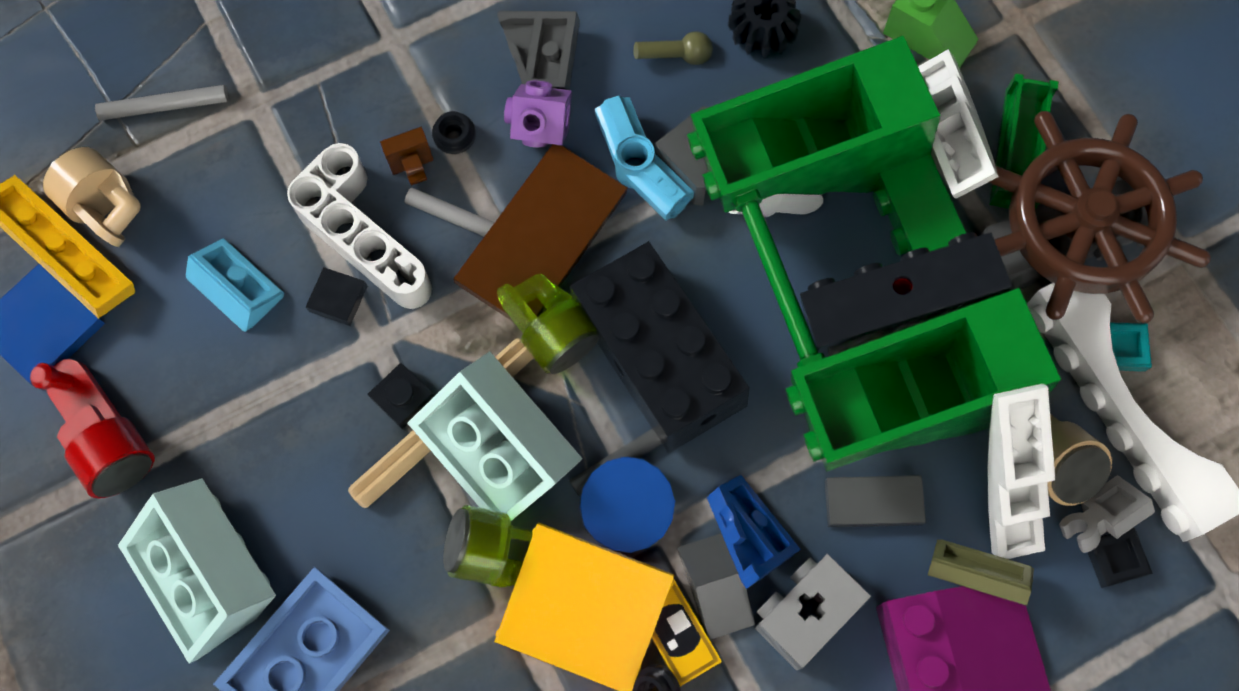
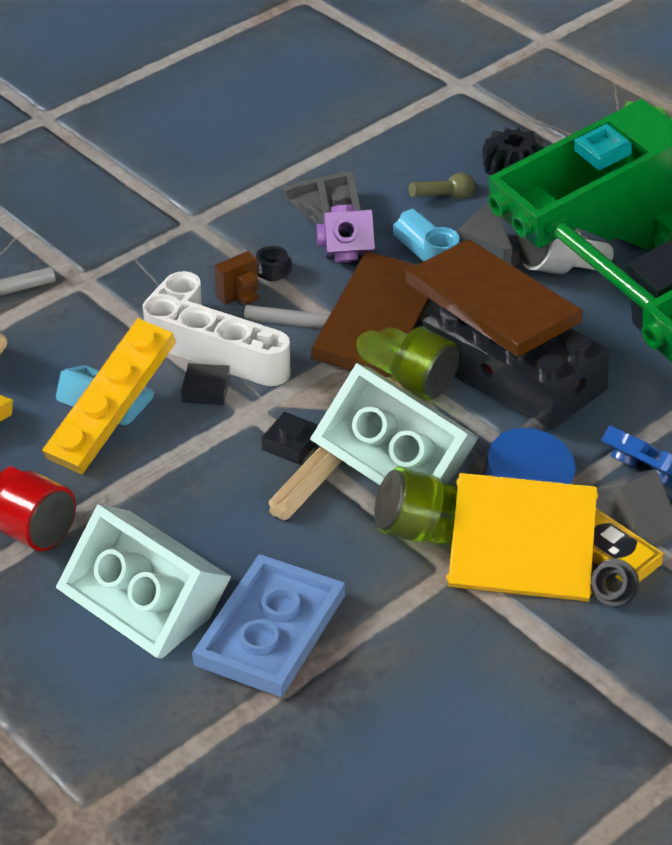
camera: 15 degrees left, 30 degrees down
(225, 308) = (109, 396): none -> yellow plate
(648, 285) = (494, 297): none -> reddish brown tile
(829, 109) = (602, 147): none -> teal tile

